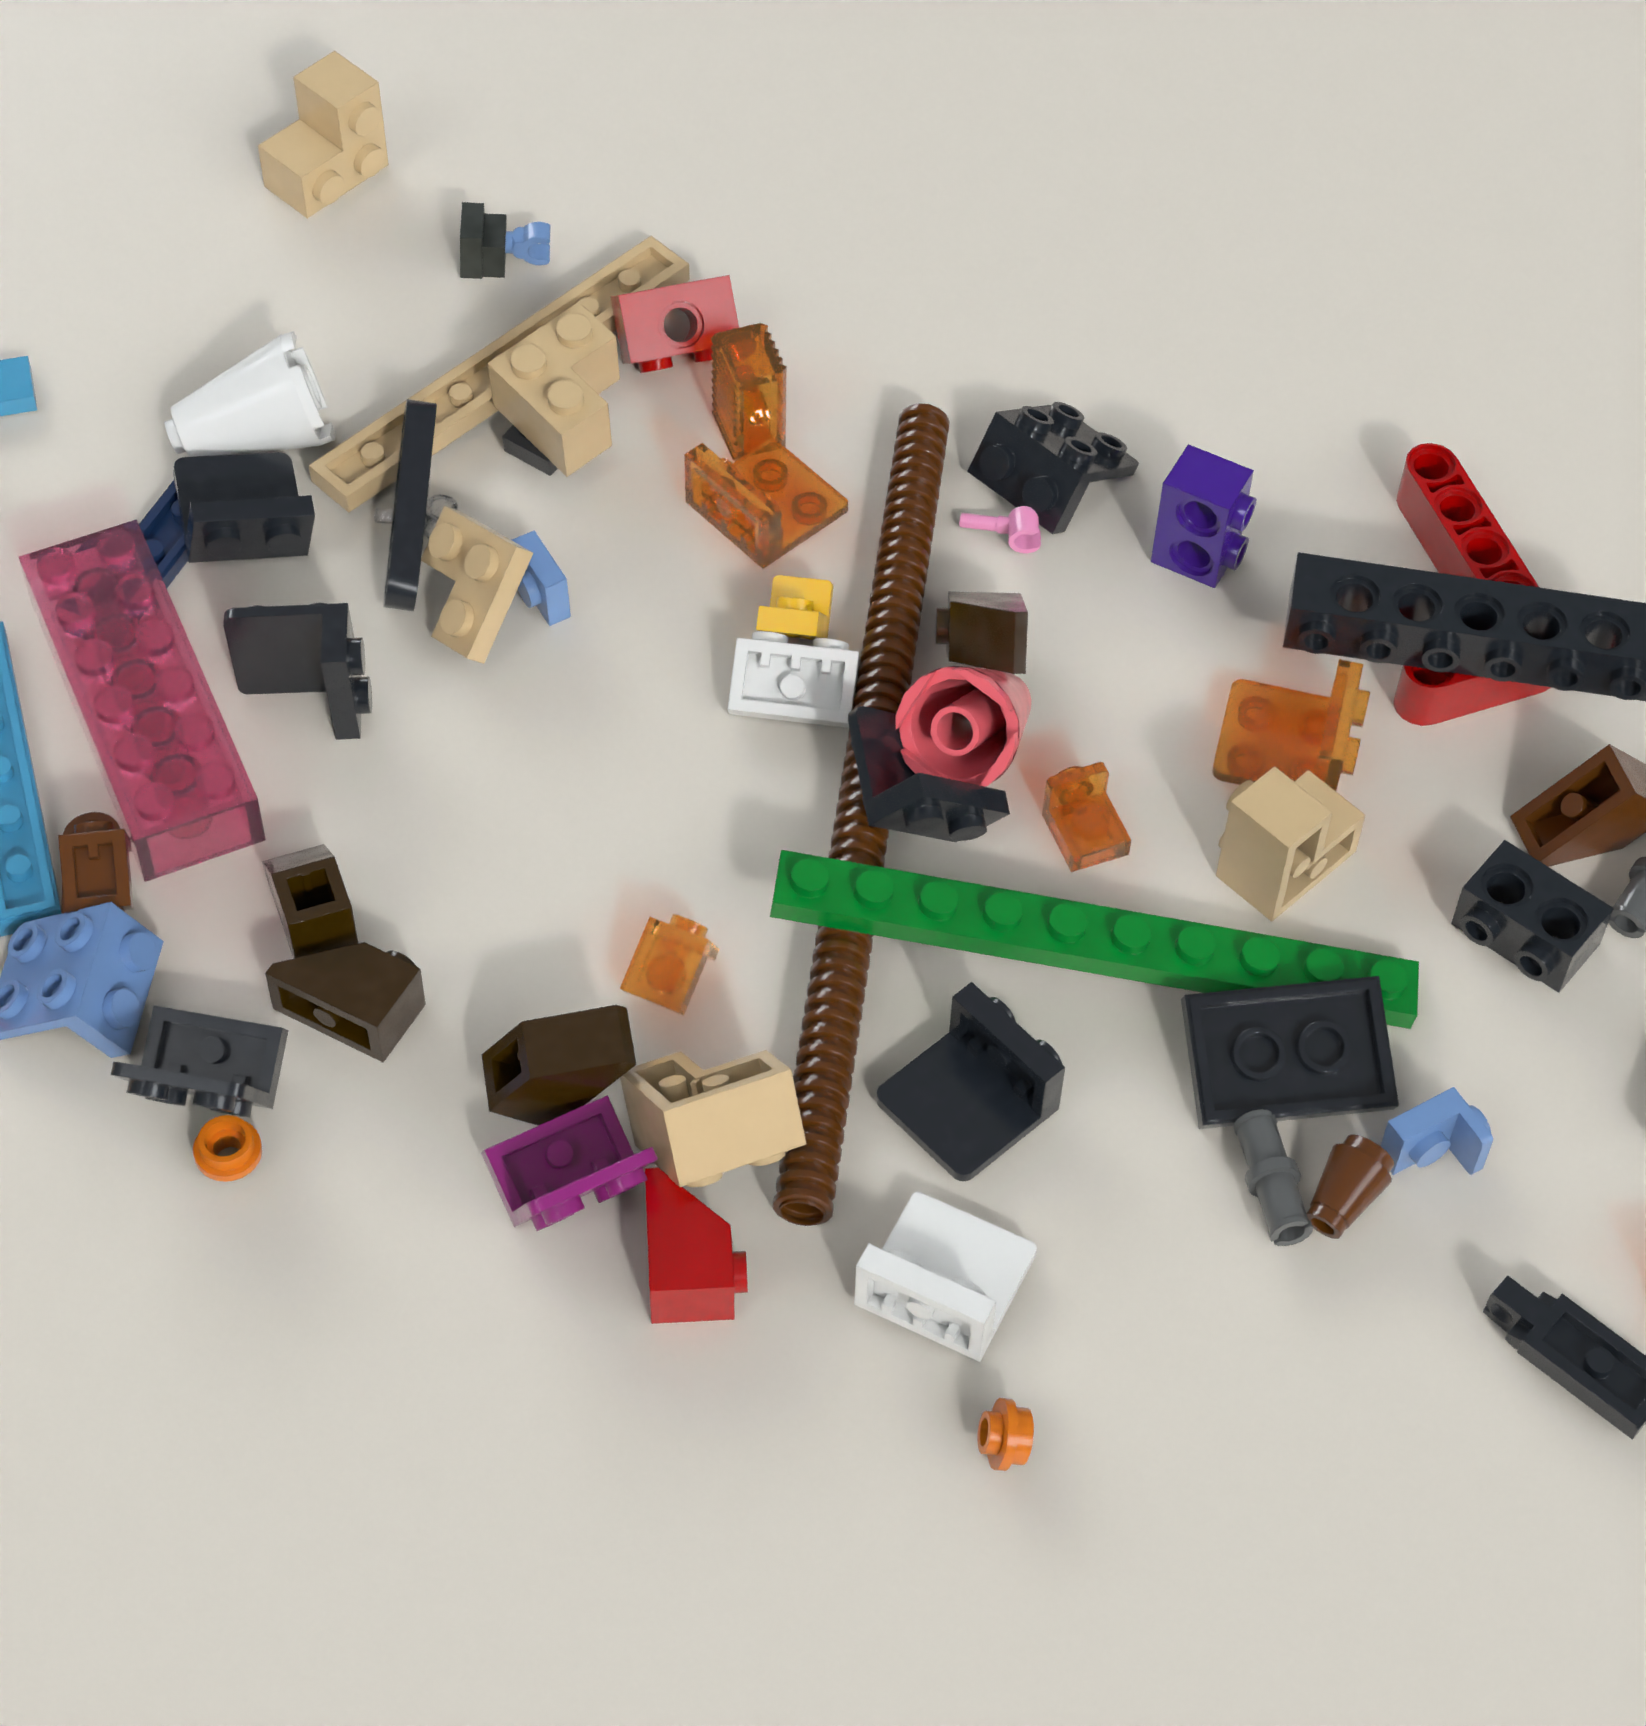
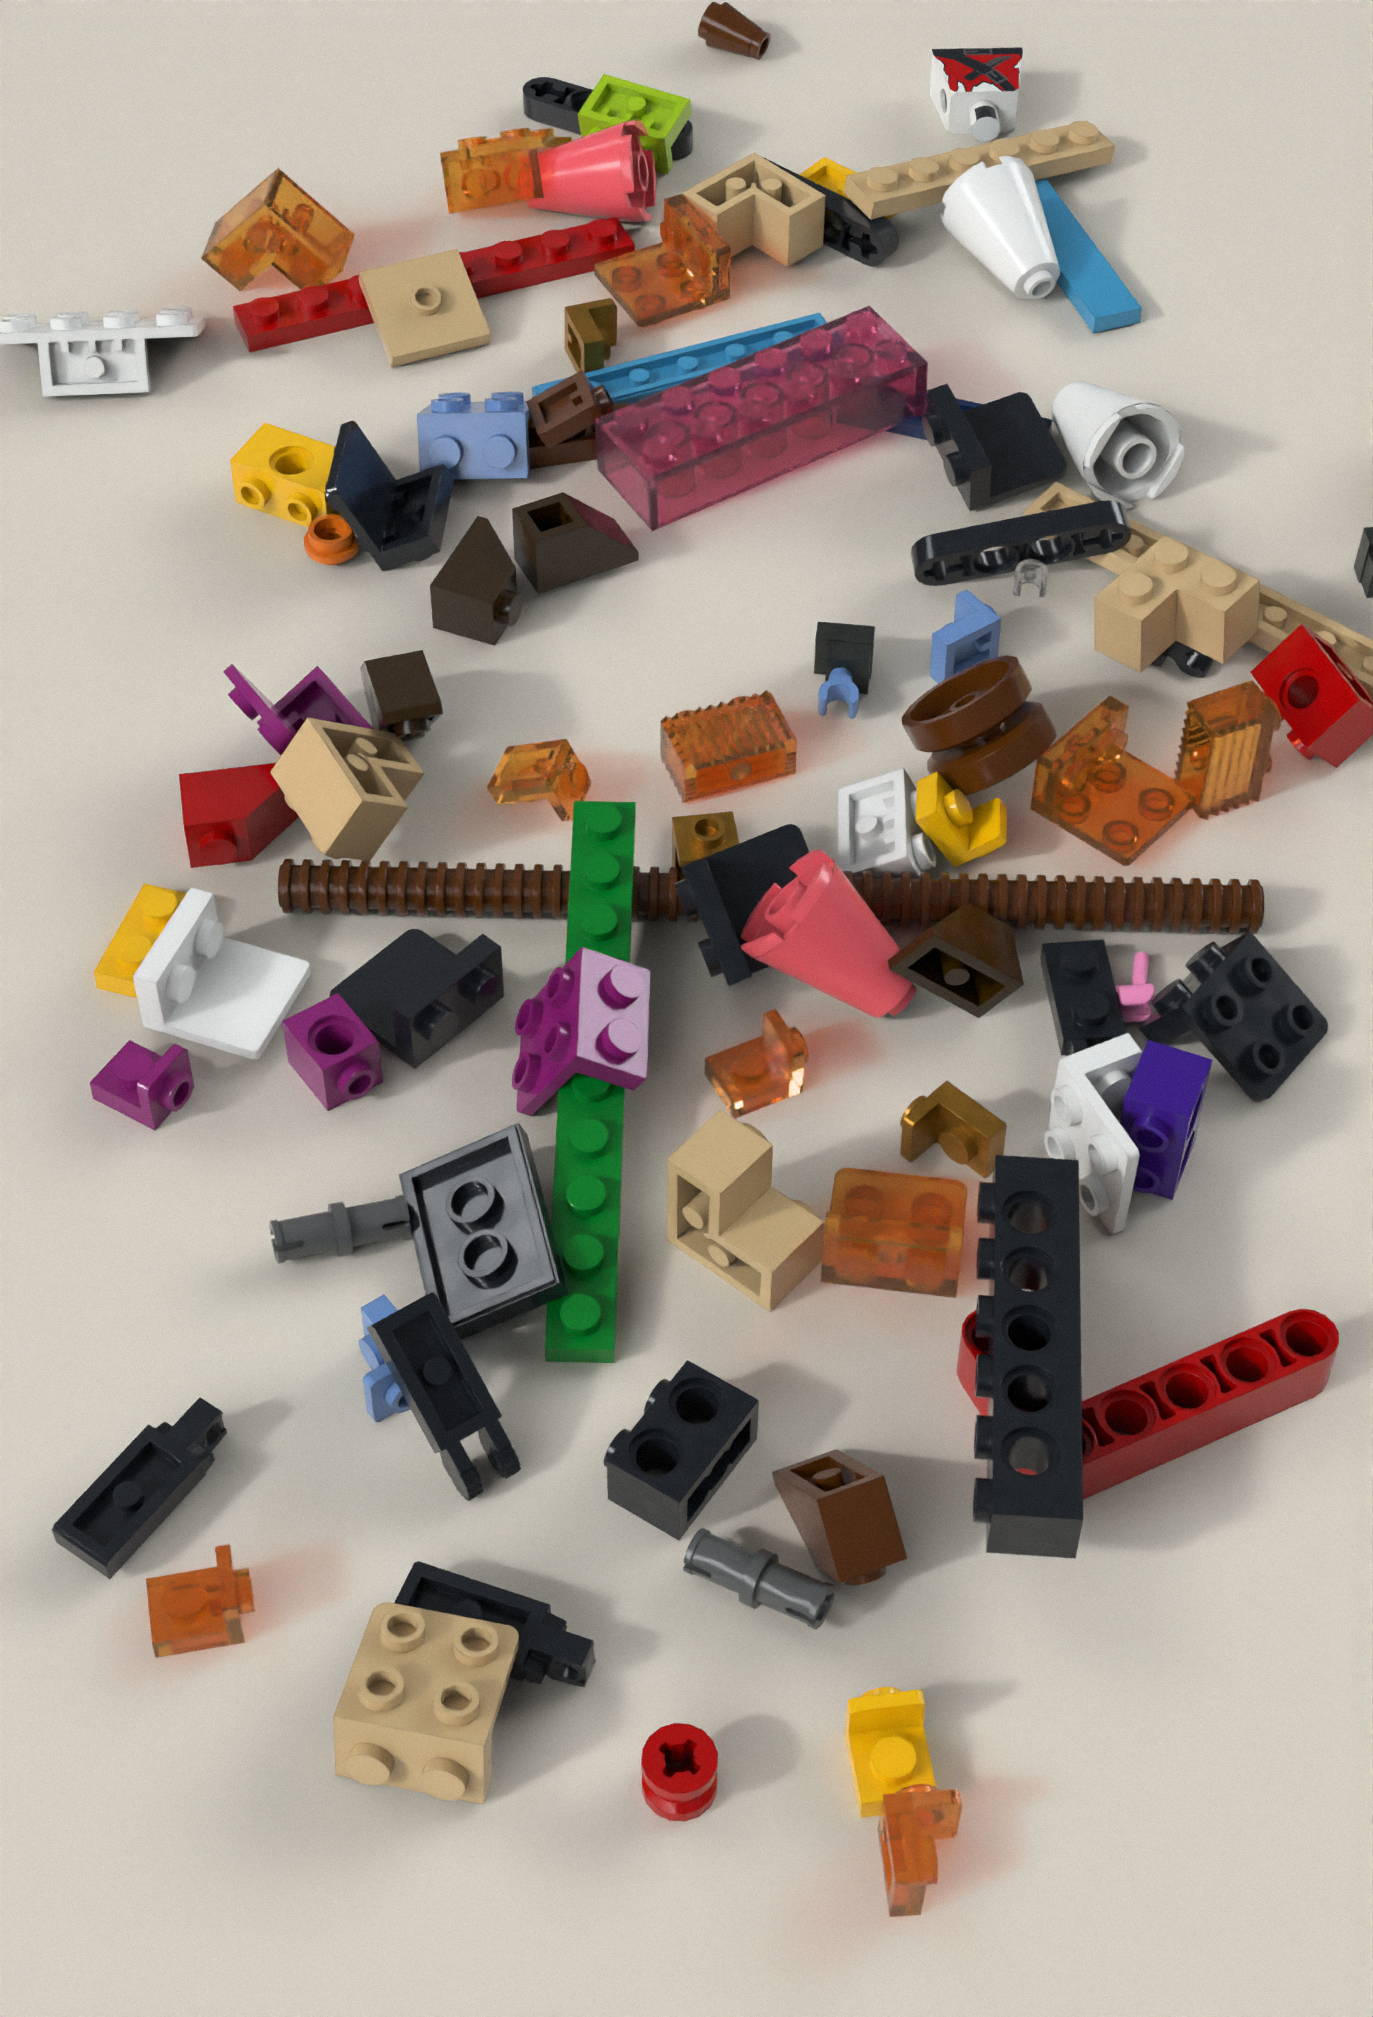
camera: 85 degrees right, 5 degrees down
(119, 1140) = (283, 474): none -> yellow brick
(302, 653) = (806, 505): black bracket -> none
(486, 579) = (934, 585): tan plate -> none
(540, 680) = (846, 659): none -> pearl dark grey piece
(654, 793) = (727, 746): none -> clear orange brick
(701, 563) = (980, 725): none -> reddish brown wheel
(821, 809) = (701, 836): none -> pearl gold bracket
(856, 1355) = (135, 938): none -> yellow plate
(1006, 1434) = (59, 1037): orange plate -> none
(1033, 566) = (1081, 994): none -> black hinge
(1045, 1194) = (333, 1052): none -> magenta brick
(1067, 1353) = (145, 1083): none -> magenta bracket
(1070, 942) = (583, 1022): none -> magenta bracket
(1177, 674) = (958, 1124): none -> pearl gold bracket
(1215, 569) = (1088, 1126): none -> white bracket
(1349, 1184) = (331, 1288): reddish brown cone -> none
(1496, 1077) = (443, 1390): none -> black hinge

